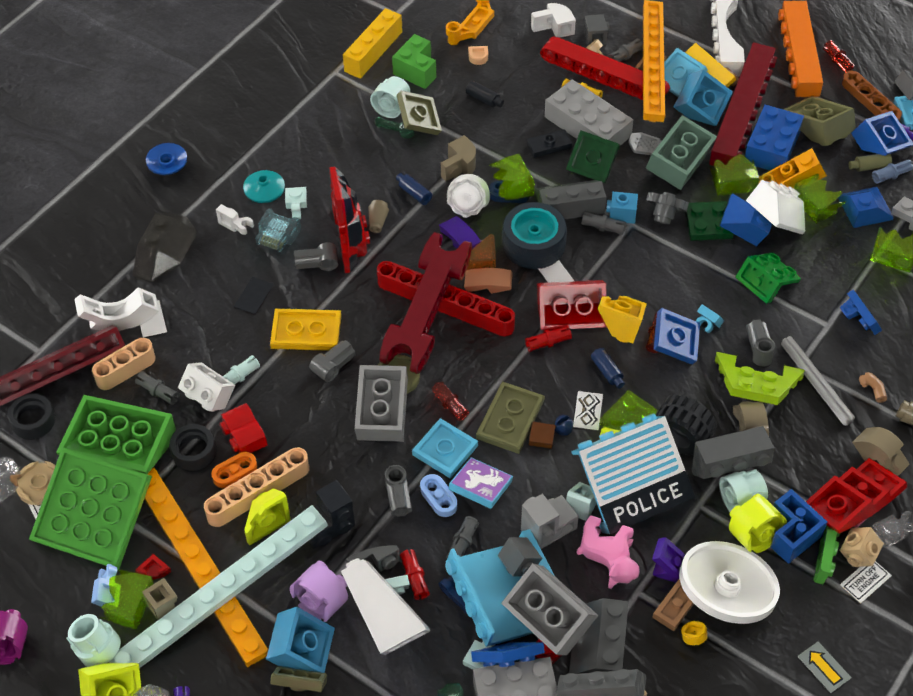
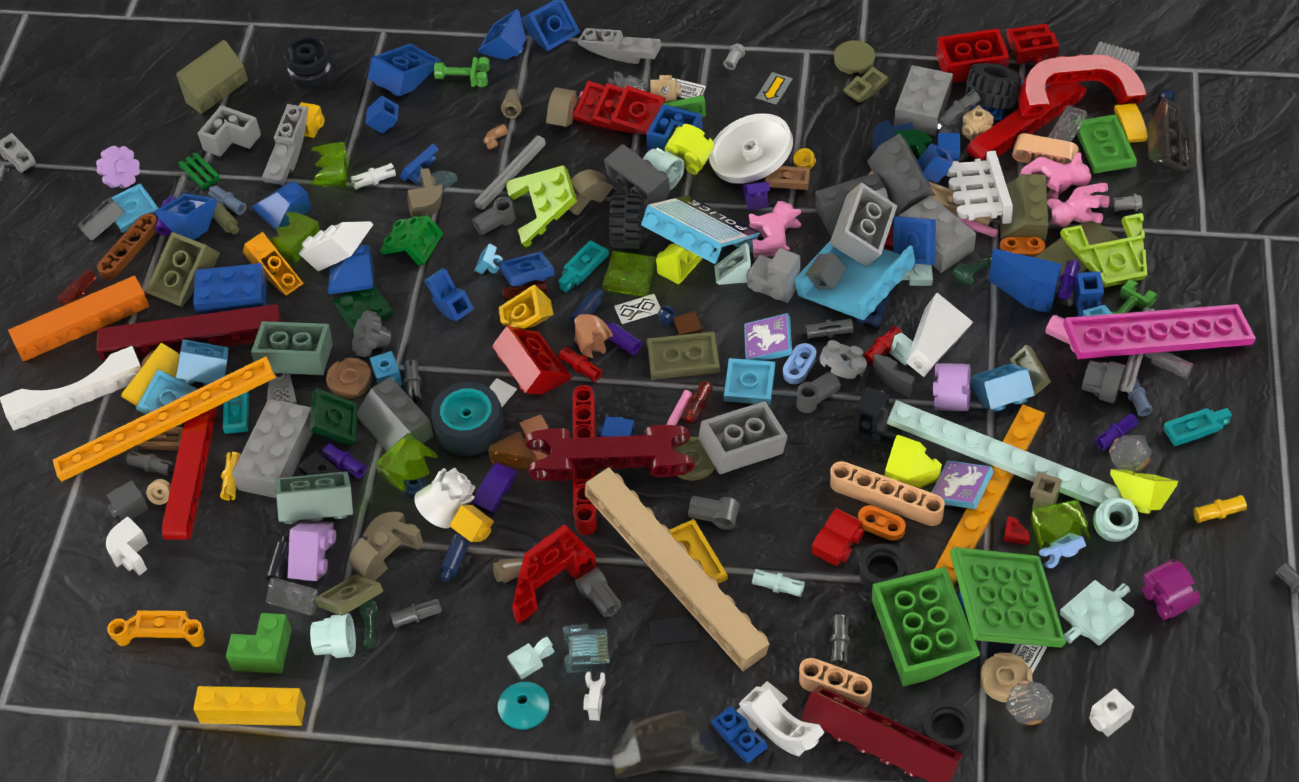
camera: 115 degrees left, 0 degrees up
(34, 580) = (1096, 612): none -> light aqua plate
(151, 285) = (738, 734): none -> blue slope
(206, 386) = (815, 589): white brick -> none
(220, 545) = (962, 483): none -> tile
(292, 302) = (677, 569): none -> tan brick
(382, 150) = (416, 612): none -> dark grey axle
(417, 540) = (843, 360): none -> light grey plate
(431, 203) = (472, 523): none -> yellow brick
(443, 135) = (369, 554): none -> dark tan brick
(447, 380) = (679, 409): none -> bright pink bar
(448, 89) = (292, 596): none -> clear plate
(453, 329) = (617, 427): none -> blue brick
(478, 54) = (213, 600): light nougat tile -> none
(478, 103) = (307, 549): none -> lavender brick
(516, 115) = (313, 497): none -> sand green brick
(550, 156) = (344, 461): none -> dark purple pin
(558, 378) = (624, 339): none -> dark purple cylinder
(567, 346) = (590, 334): none -> nougat hair
(634, 108) = (236, 414): none -> teal hinge
(637, 183) = (349, 378): none -> medium nougat tile
(658, 380) = (582, 265): none -> teal hinge
(679, 274) = (446, 297): none -> blue brick
(736, 176) = (299, 302): clear neon green piece -> none
(812, 302) = (426, 199): none -> dark tan brick
(836, 326) = (444, 178): none -> clear light blue tile
(866, 276) = (373, 176): none -> white pin
(889, 645) = (736, 52): none -> light grey pin

